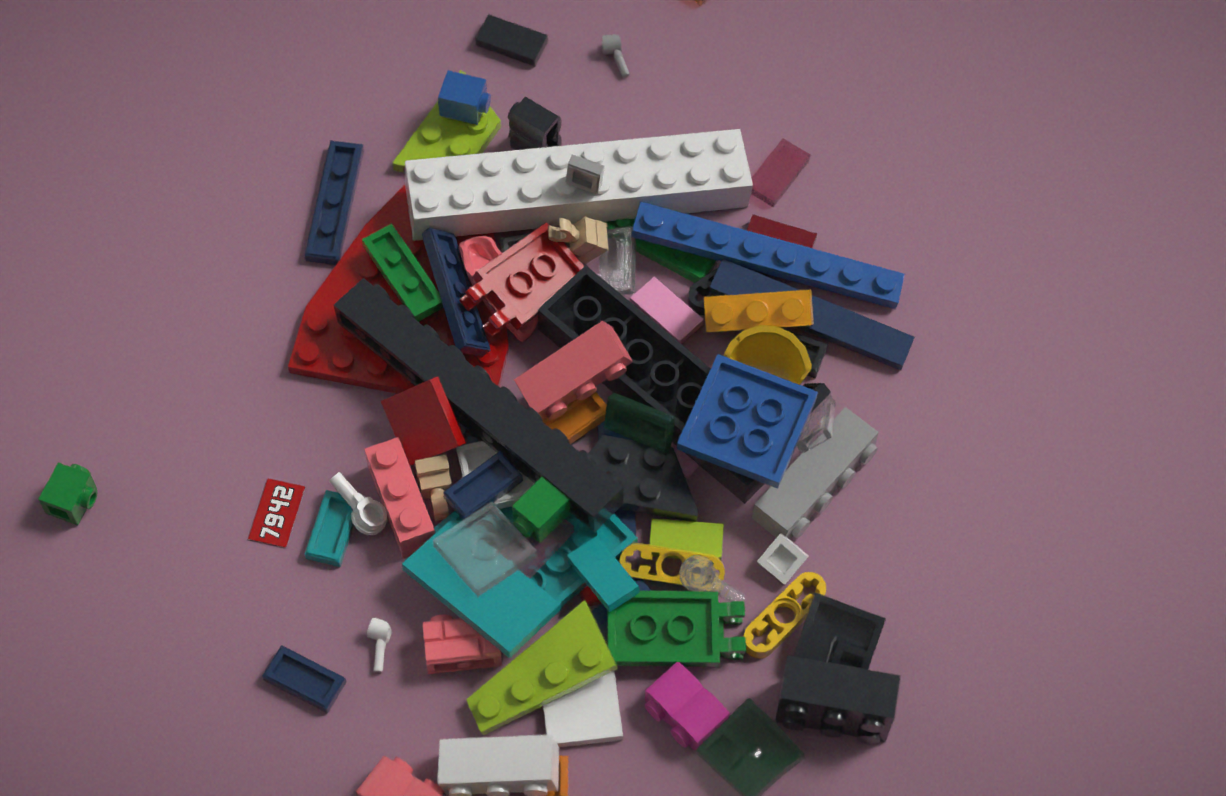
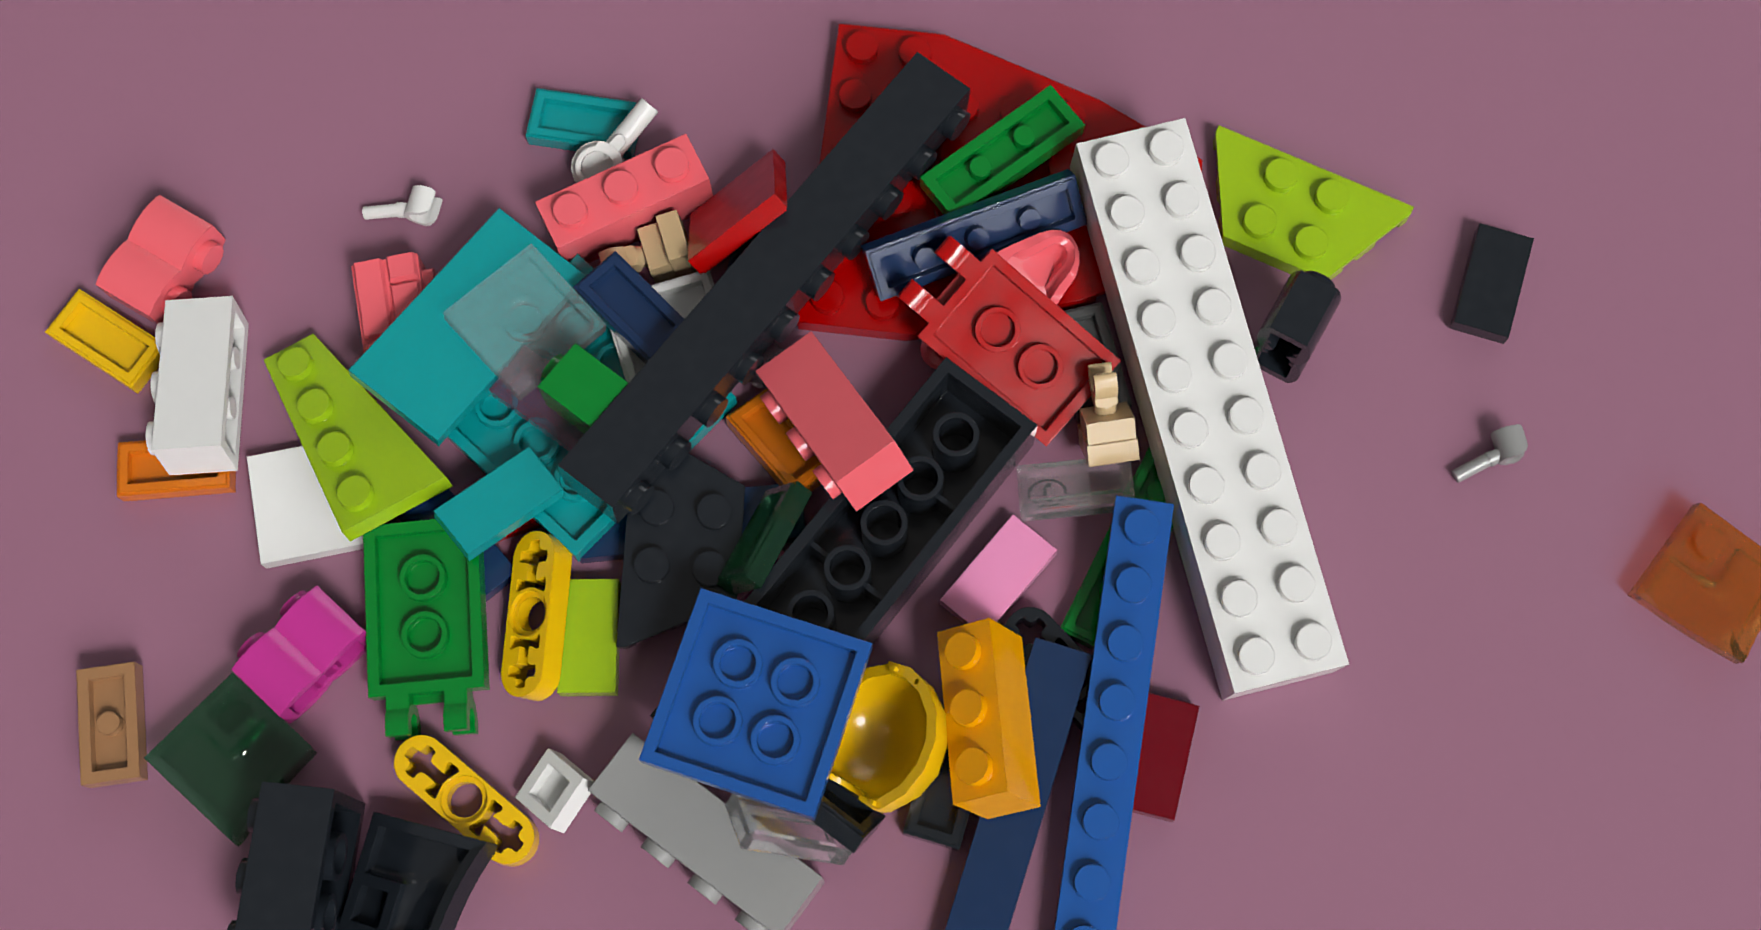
camera: 90 degrees right, 10 degrees up
(276, 512) = (609, 47): red sticker -> none
(304, 679) = (349, 116): dark blue tile -> none
(334, 202) = (1141, 54): dark blue tile -> none
(463, 97) = (1343, 206): blue brick -> none
(584, 174) = (1187, 394): light grey tile -> none
(699, 574) = (503, 654): clear plate -> none
(778, 172) = (1296, 748): clear pink tile -> none

